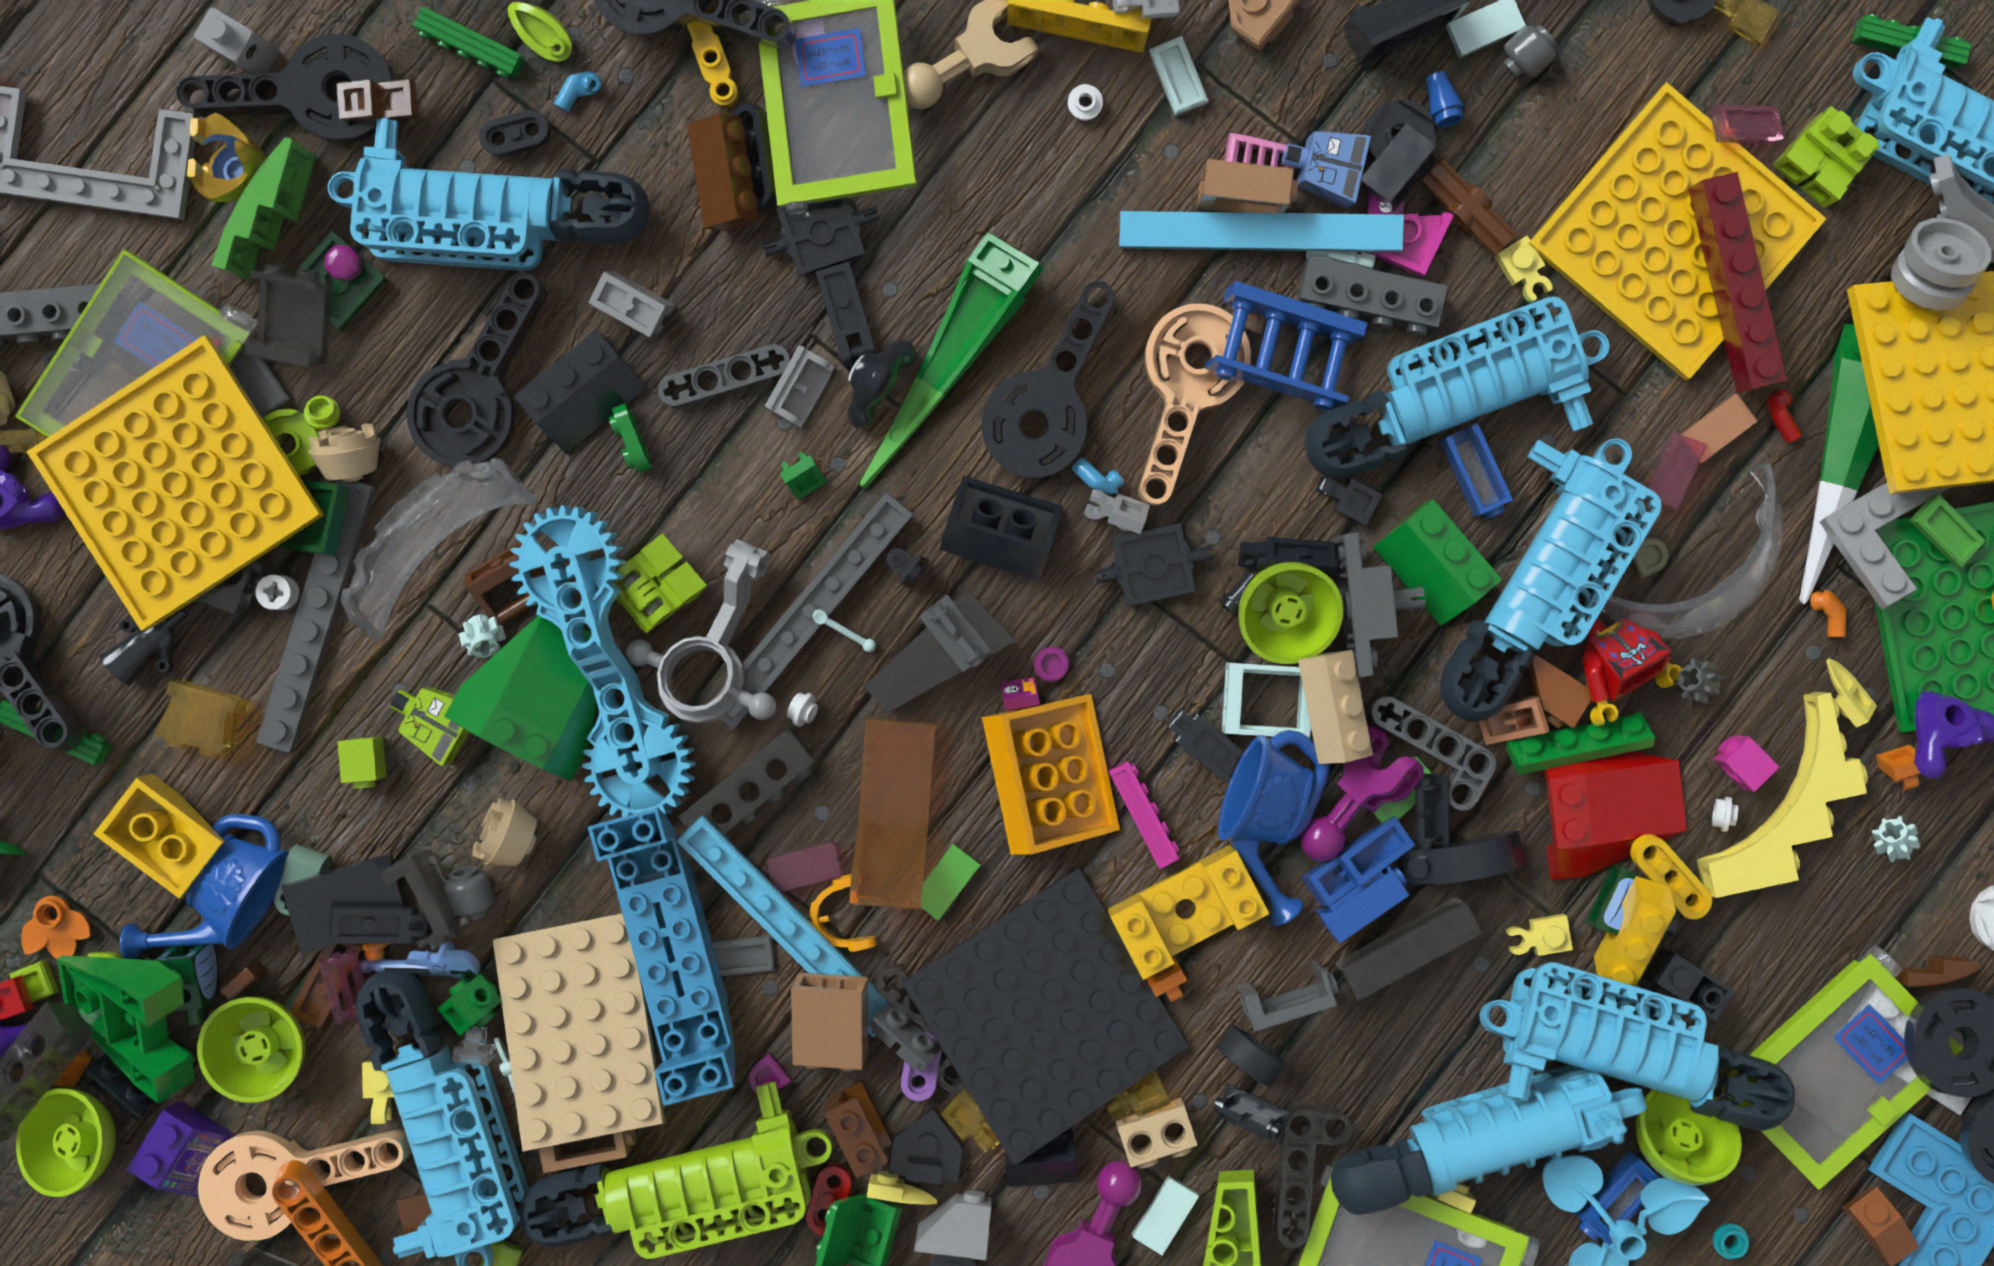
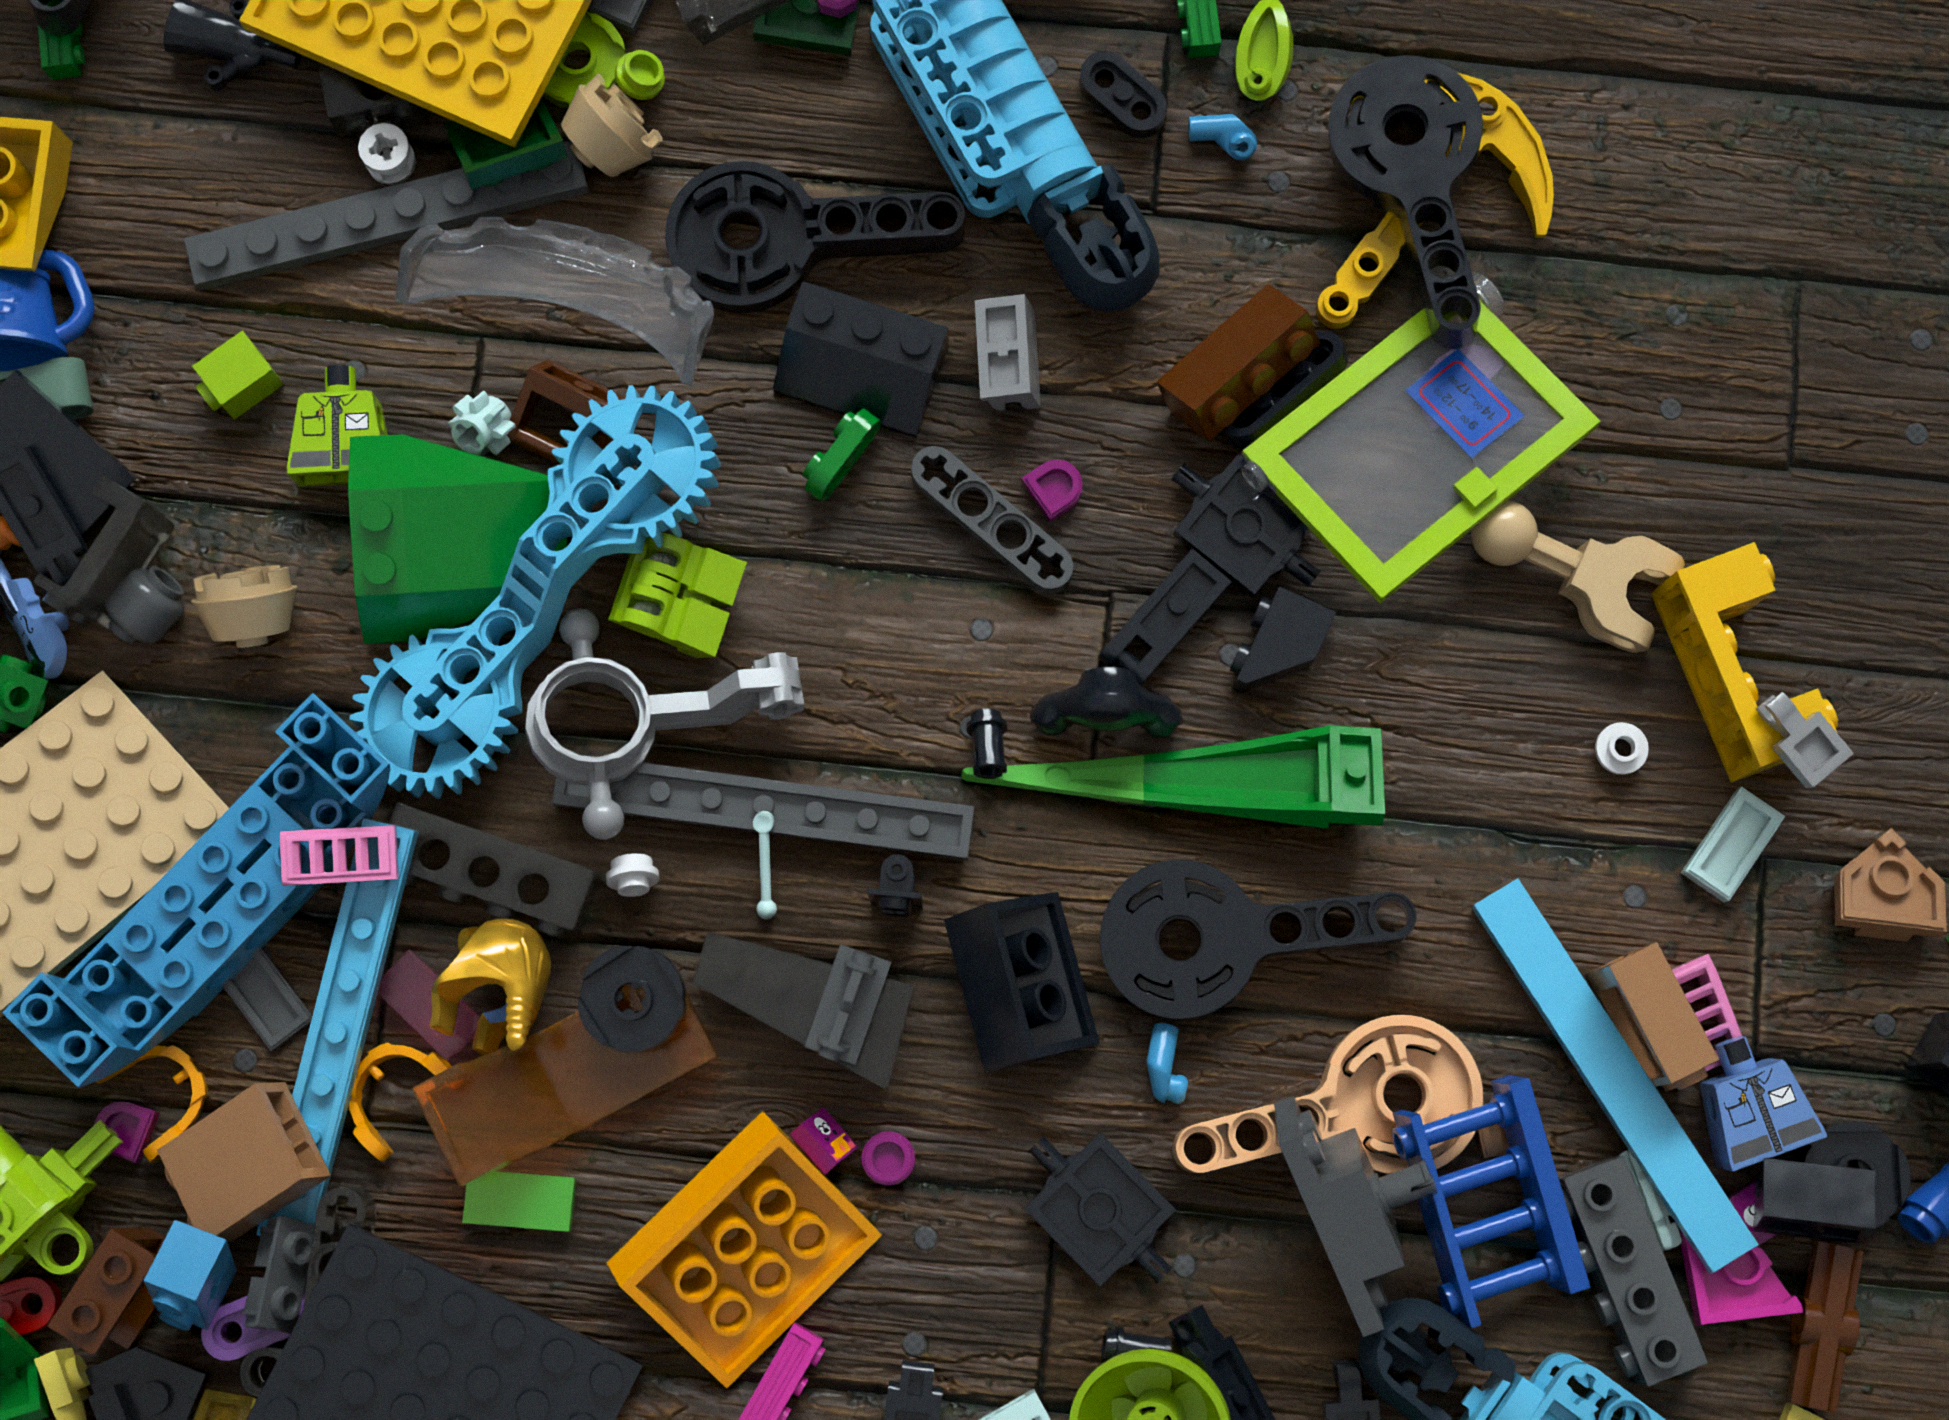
camera: 60 degrees right, 10 degrees down
(201, 718) = (175, 157): clear yellow hips -> none
(672, 892) = (291, 855): none -> bright pink slope
(728, 327) = (1054, 487): none -> magenta tile
(773, 1023) = (199, 1093): none -> light orange piece
(800, 386) = (1037, 618): light grey hinge -> none
(801, 813) = (499, 954): none -> pearl gold piece
(803, 476) = (927, 691): green tile -> none
(846, 457) = (988, 746): none -> black pin
(876, 1086) = (190, 1276): none -> dark azure brick
(889, 765) = (602, 992): none -> black plate
(903, 253) = (1286, 640): none -> black slope
(1122, 511) = (1141, 1124): light grey plate -> none
(1241, 426) = (1350, 1206): none -> dark grey brick

